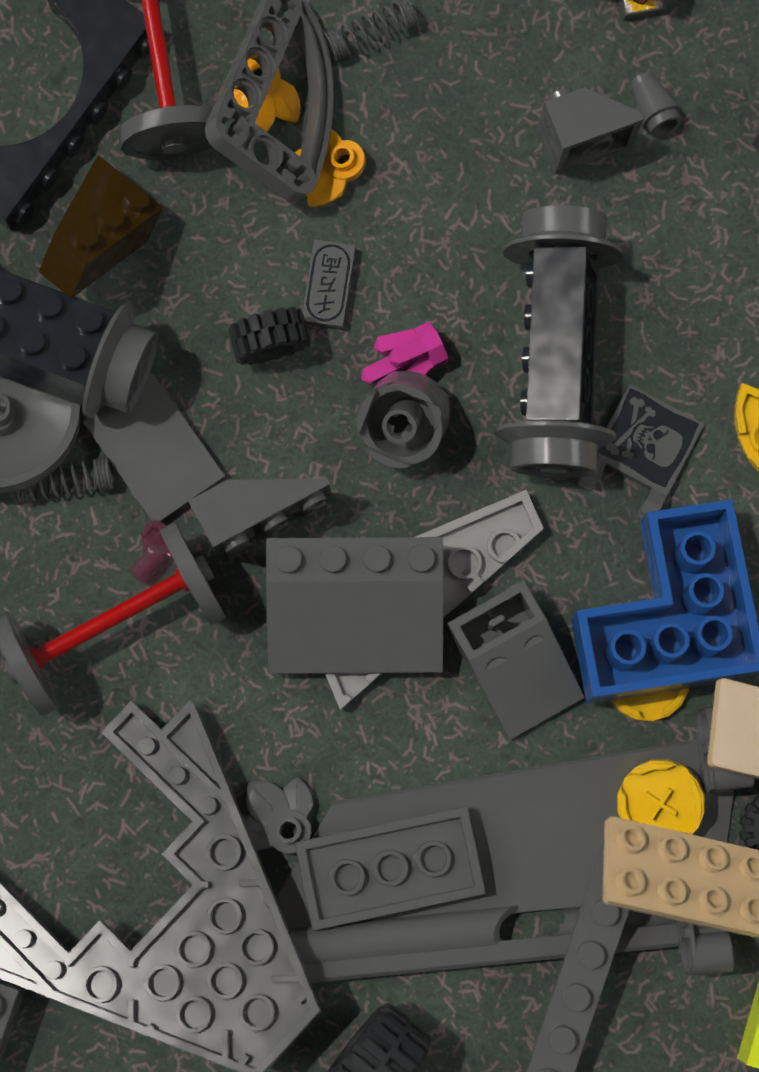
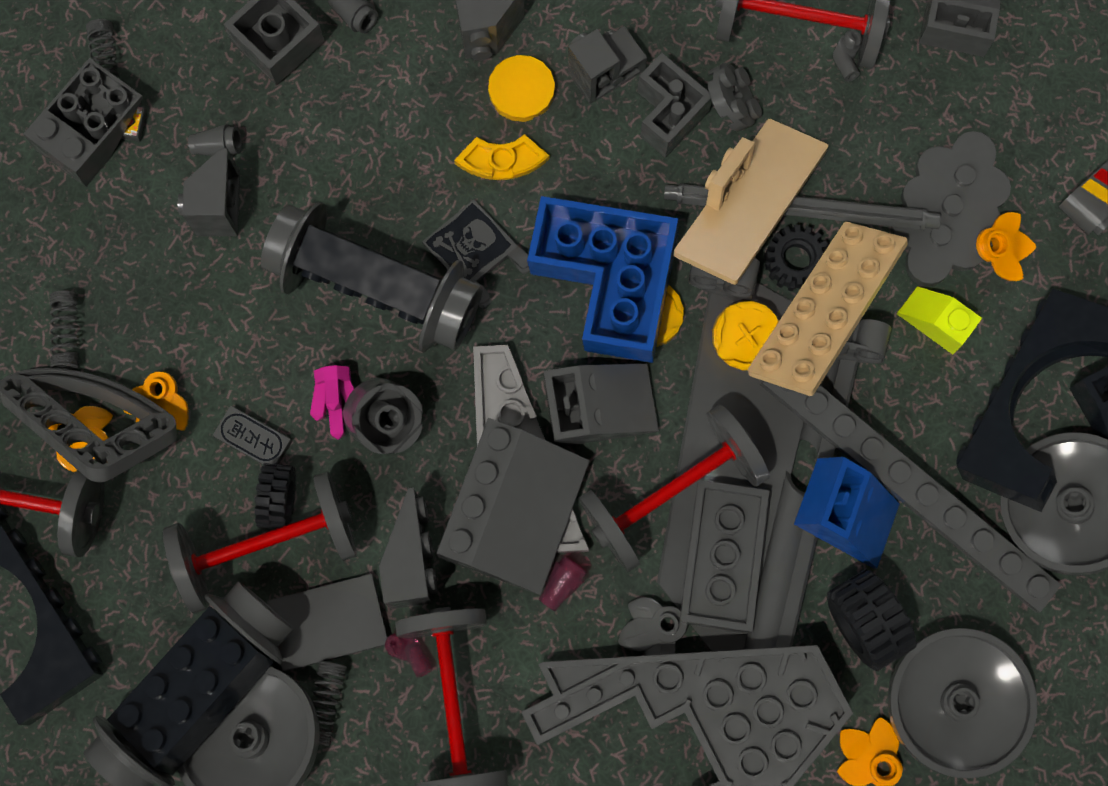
camera: 65 degrees left, 5 degrees down
(99, 229) = (134, 598): dark brown wedge -> none
(154, 272) = (187, 566): none -> dark grey piece
(293, 693) = (562, 582): none -> clear pink cone
(368, 724) = (736, 445): none -> dark grey piece
(495, 994) = (848, 509): none -> blue slope

